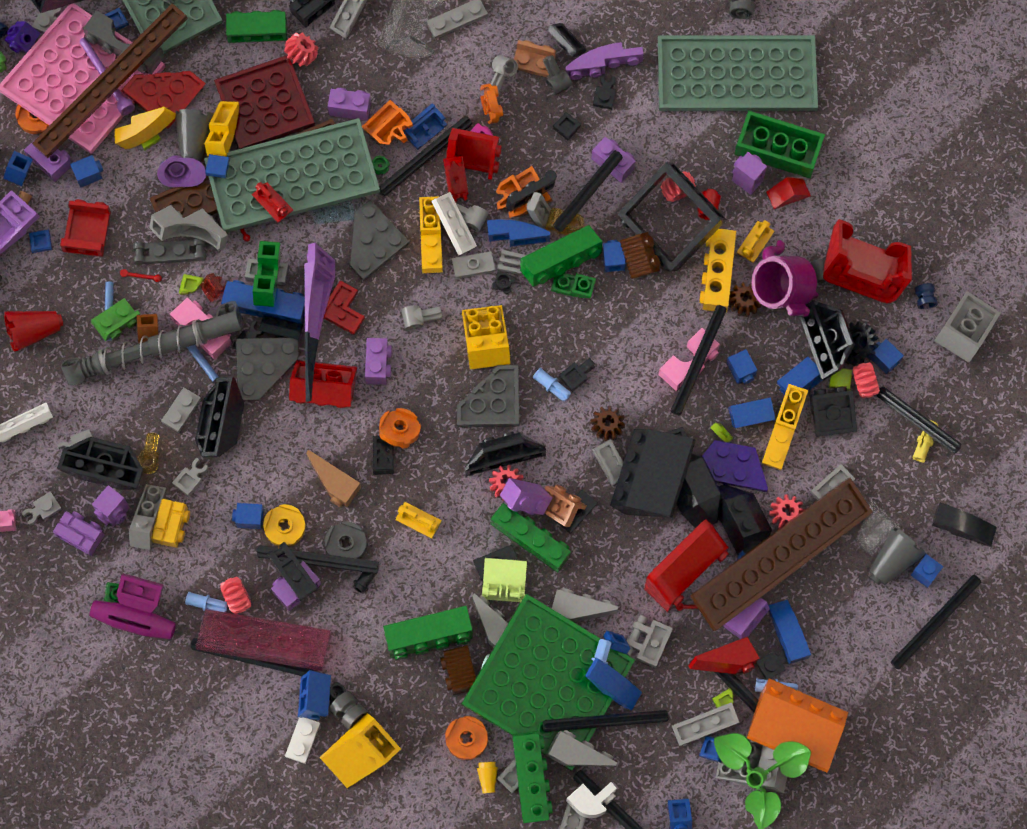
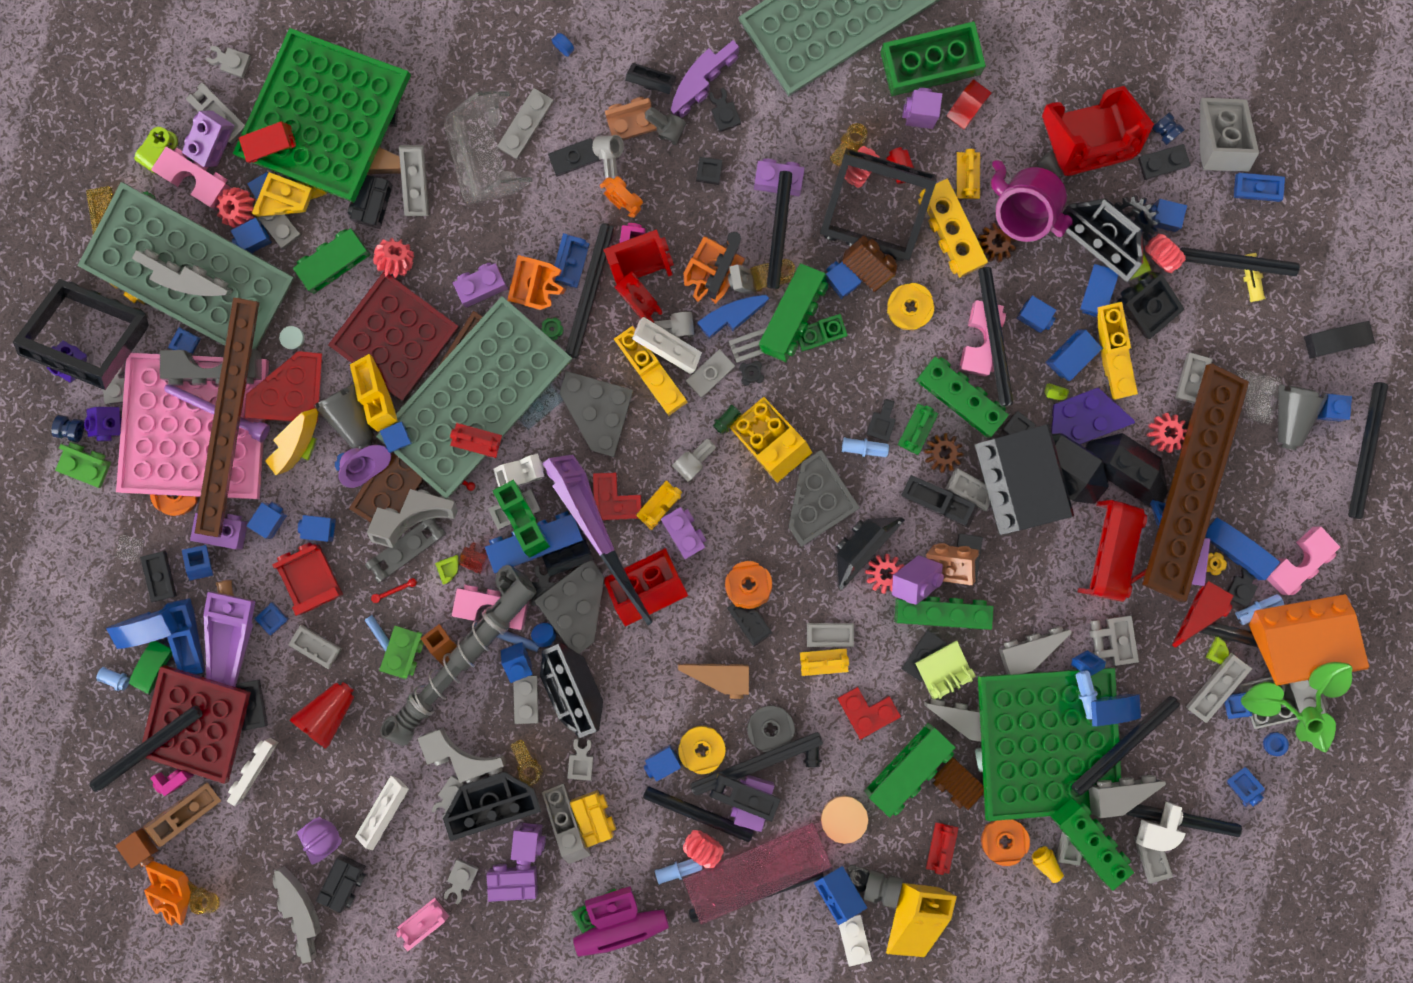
camera: 30 degrees left, 15 degrees up
(57, 278) = (315, 646): none -> light grey plate
(94, 403) = (438, 747): none -> light grey arch
(117, 198) = (316, 528): none -> blue brick
(192, 61) = (292, 338): none -> light aqua tile
(193, 376) = (516, 662): none -> blue brick
(225, 370) = (543, 635): none -> blue tile
(249, 572) = (697, 813): none -> black axle
(291, 248) = (522, 471): none -> white brick
(355, 645) = (844, 819): none -> light nougat tile
(375, 329) = (659, 504): none -> yellow hinge
(415, 713) = (942, 848): none -> red hinge
(422, 581) = (867, 718): none -> red plate
(436, 503) = (830, 634): none -> light grey tile
(463, 303) = (726, 419): none -> dark green pin
(475, 60) = (573, 157): none -> black plate
(582, 457) = (939, 501): none -> black slope
(600, 396) = (918, 429): none -> green hinge
(647, 391) = (962, 397): none -> green brick
(655, 296) = (923, 303): none -> yellow plate
(687, 158) = (847, 142): none -> clear yellow axle
(724, 799) = (1275, 744): none -> blue tile
(768, 632) = (1221, 563): none -> yellow plate
(812, 675) = (1317, 549): none -> bright pink arch
(909, 319) = (1164, 161): none -> black plate
(970, 379) = (1259, 187): none -> blue plate

